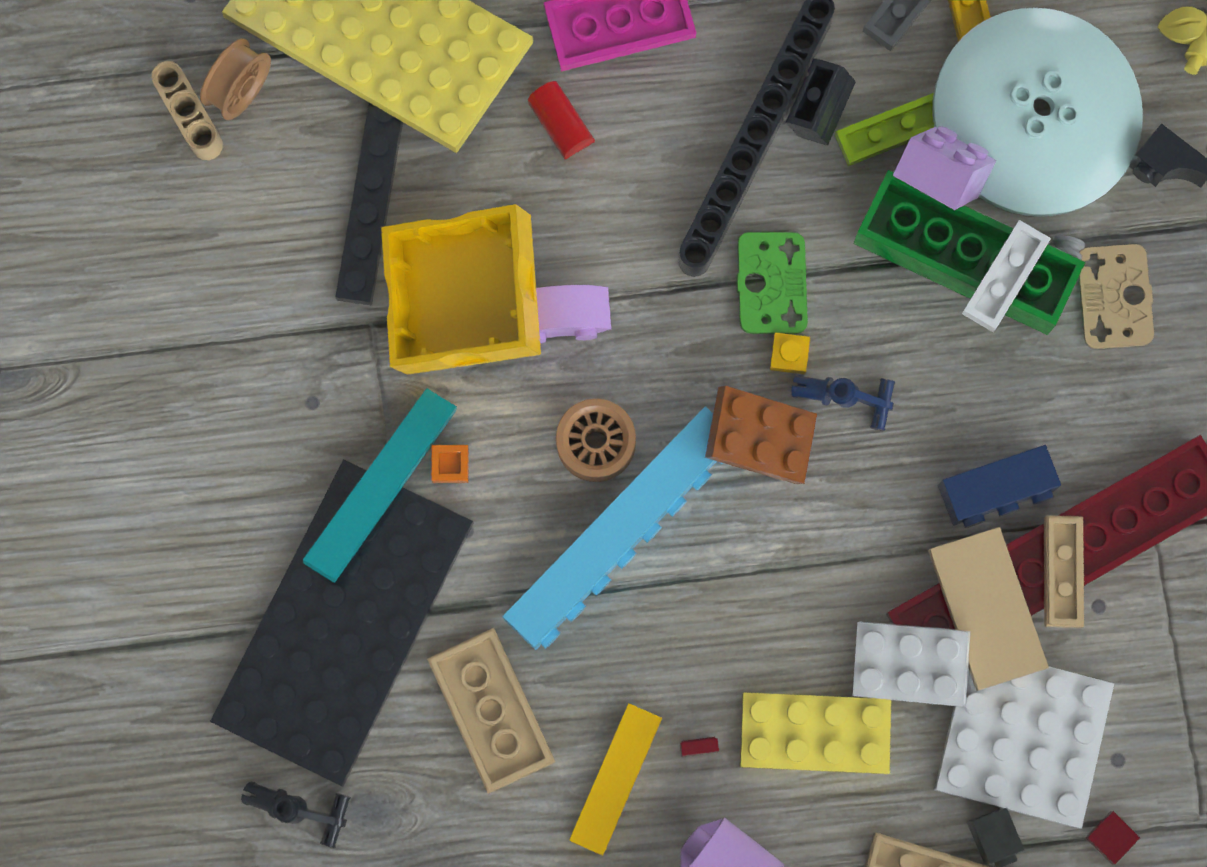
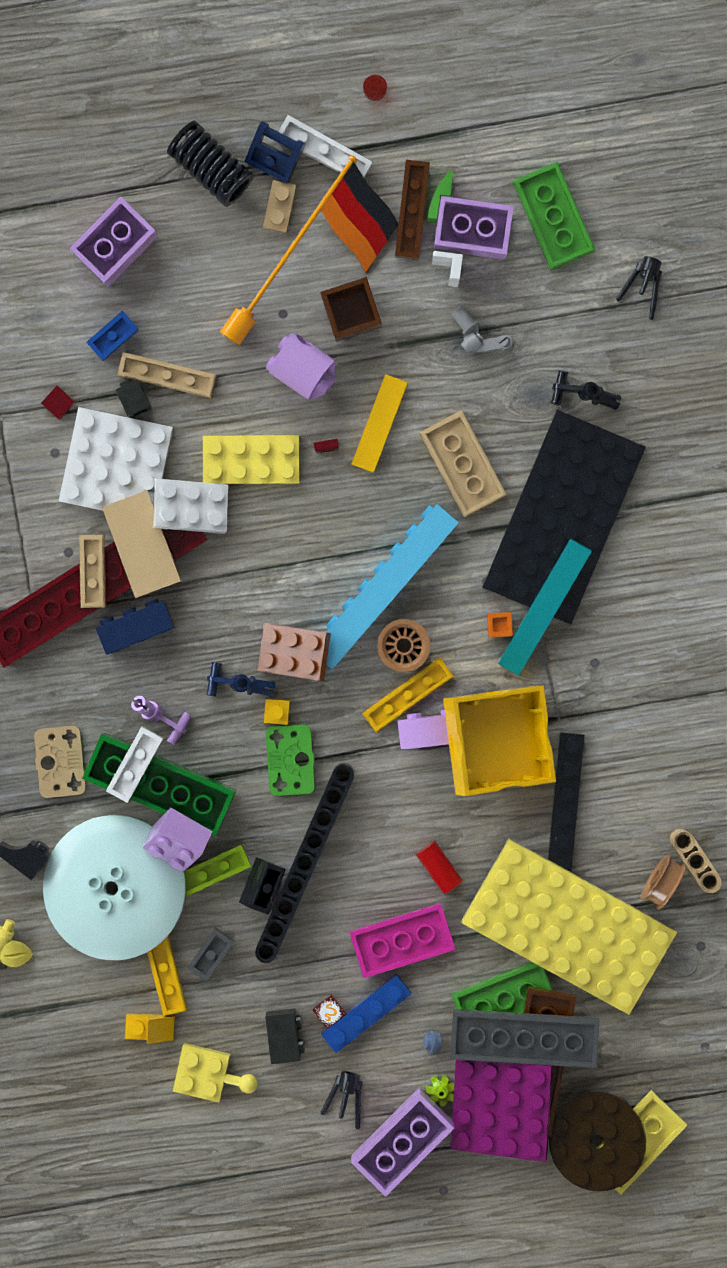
camera: 175 degrees right, 10 degrees up
(593, 369) = (407, 694): none -> yellow tile
(977, 358) = (153, 712): none -> lavender pin
(1069, 245) = (92, 791): light grey bush -> none

